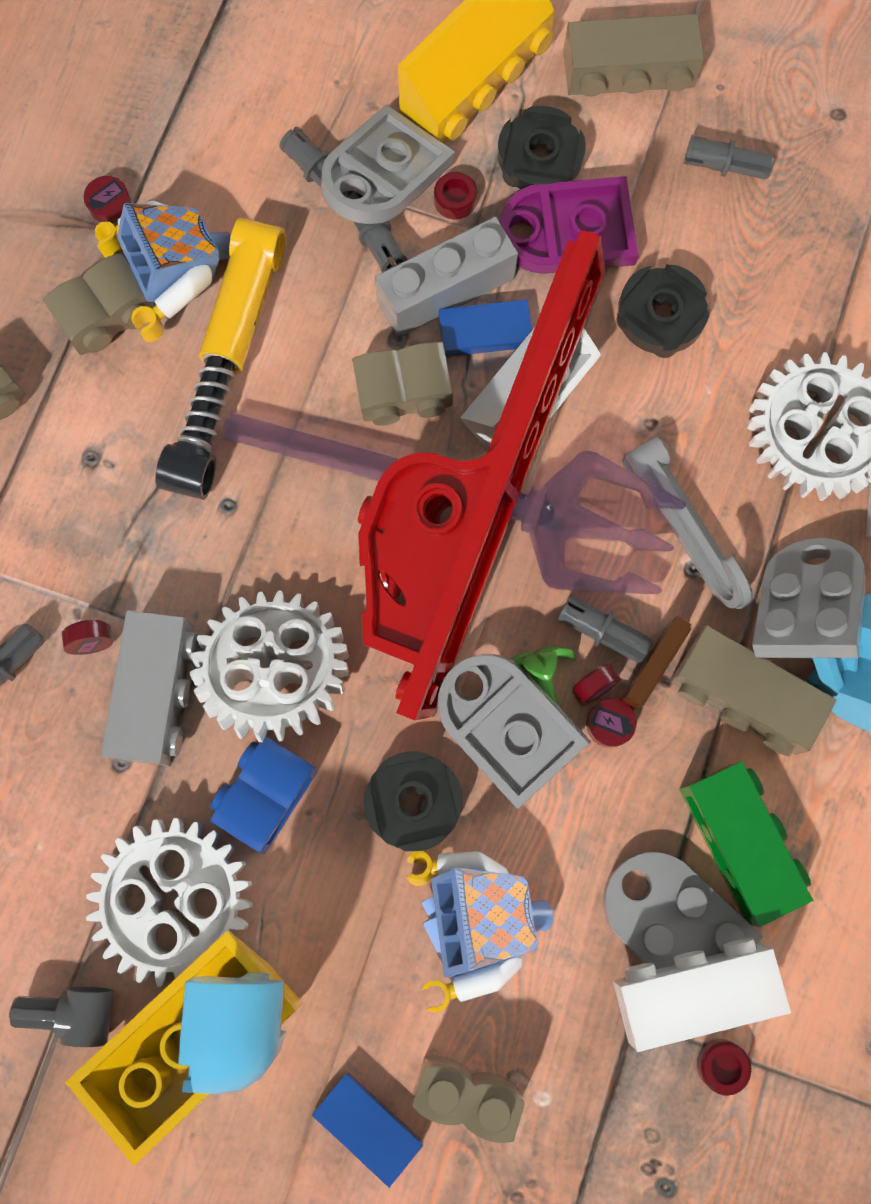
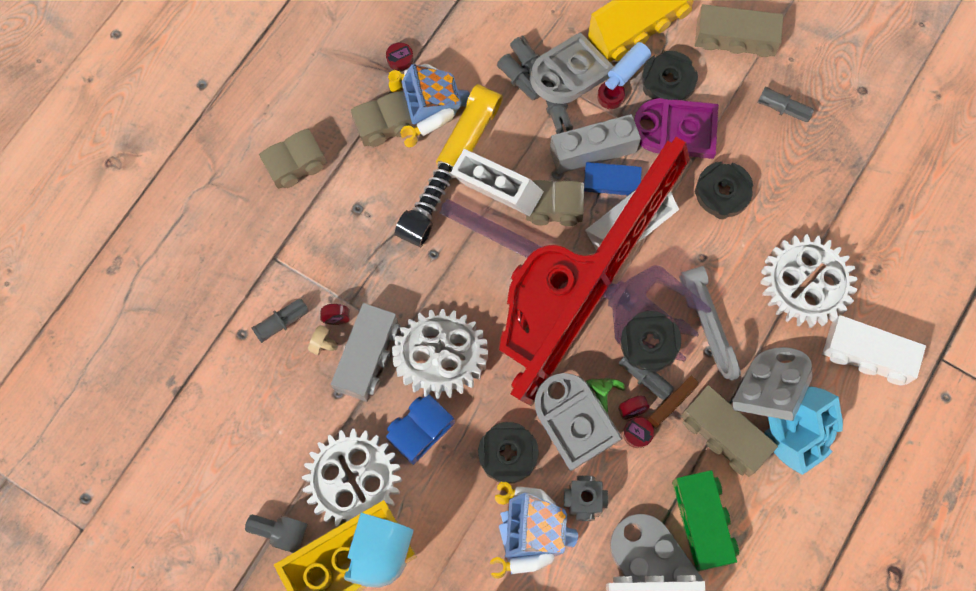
camera: 15 degrees right, 5 degrees down
(73, 685) = (320, 340): none -> tan tile
(303, 192) = (519, 76): none -> dark grey axle
(304, 368) = (497, 182): none -> white brick
(473, 142) = (628, 65): none -> light blue cylinder
(532, 850) = (585, 510): none -> dark grey brick
(616, 551) = (650, 358): none -> pearl dark grey plate

